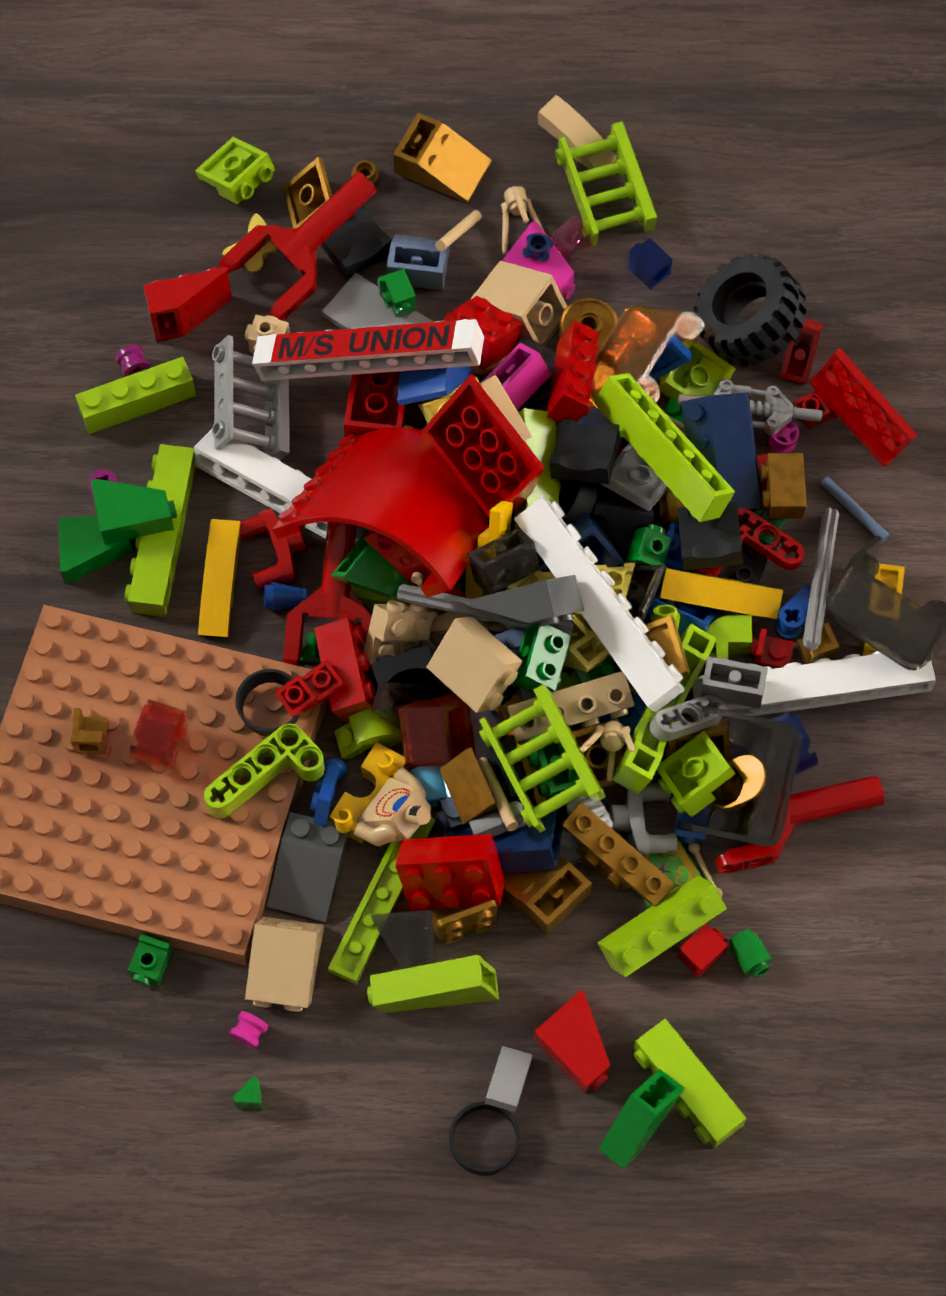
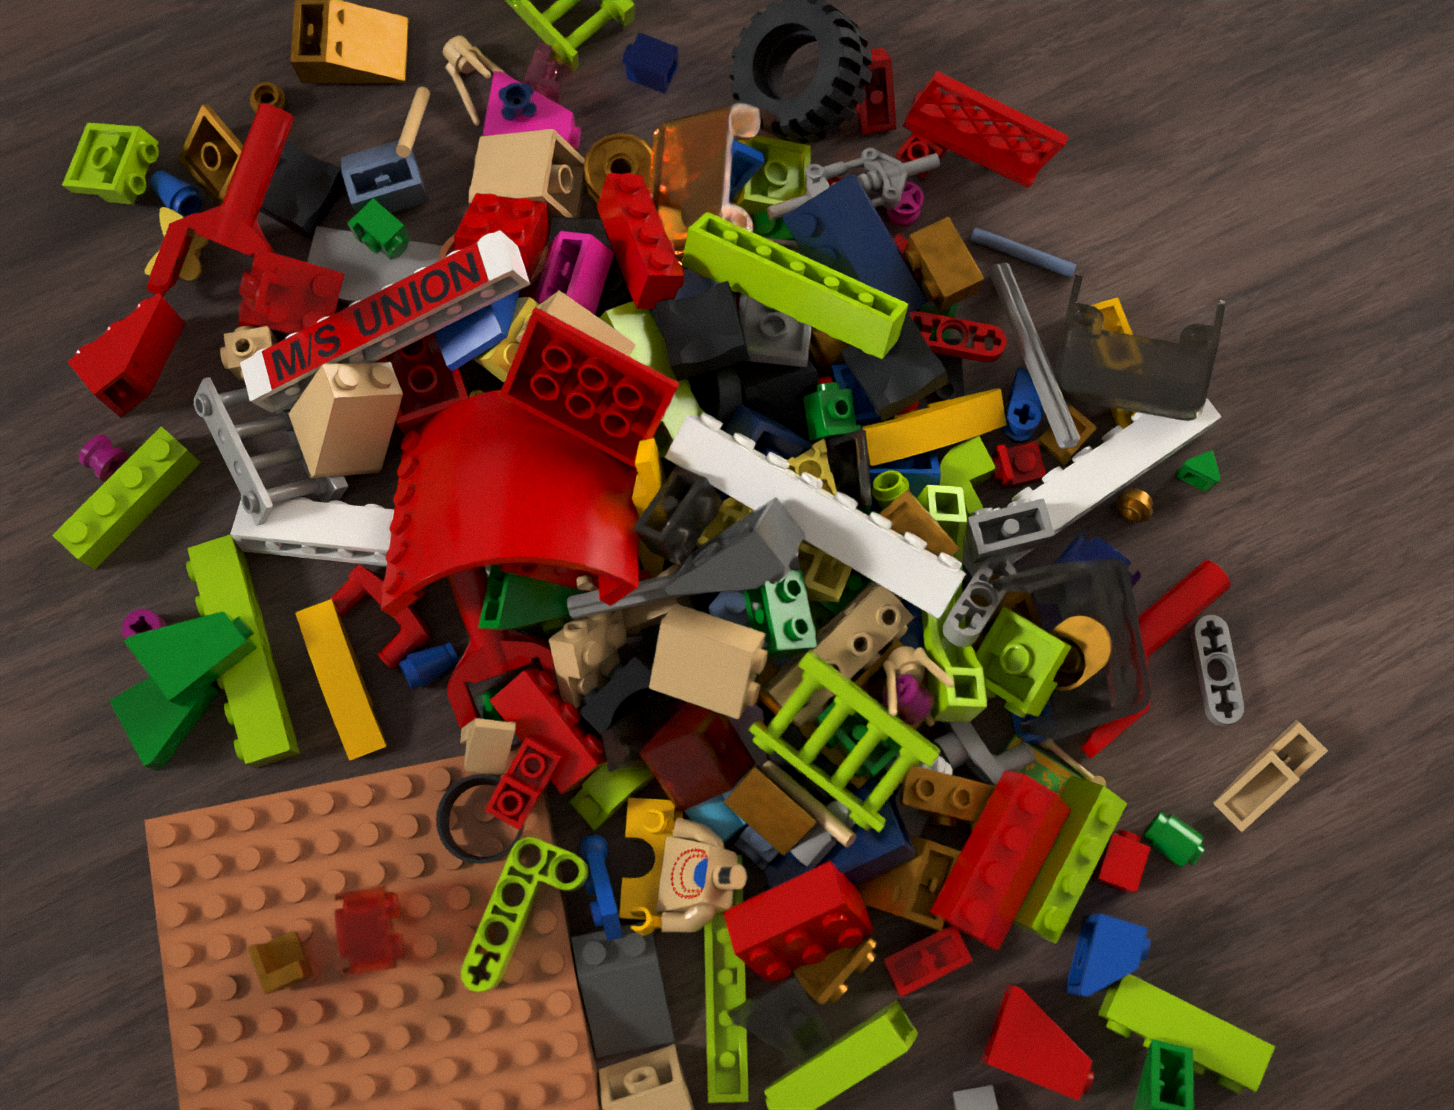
camera: 25 degrees left, 10 degrees up
(269, 208) = (176, 193): none -> blue cone
(298, 654) = (487, 745): none -> tan slope
(311, 405) = (347, 418): none -> tan slope
(312, 304) = (287, 292): none -> red bracket
(528, 948) = (926, 960): none -> red hinge
(601, 754) = (912, 701): none -> magenta wheel
(616, 898) = (1001, 858): none -> red slope
(658, 997) = (1105, 953): none -> blue slope
(830, 874) = (1222, 641): none -> light grey beam
(843, 716) = (1134, 505): none -> pearl gold plate
(845, 943) = (1270, 775): none -> tan slope
(903, 714) = (1200, 471): none -> green slope

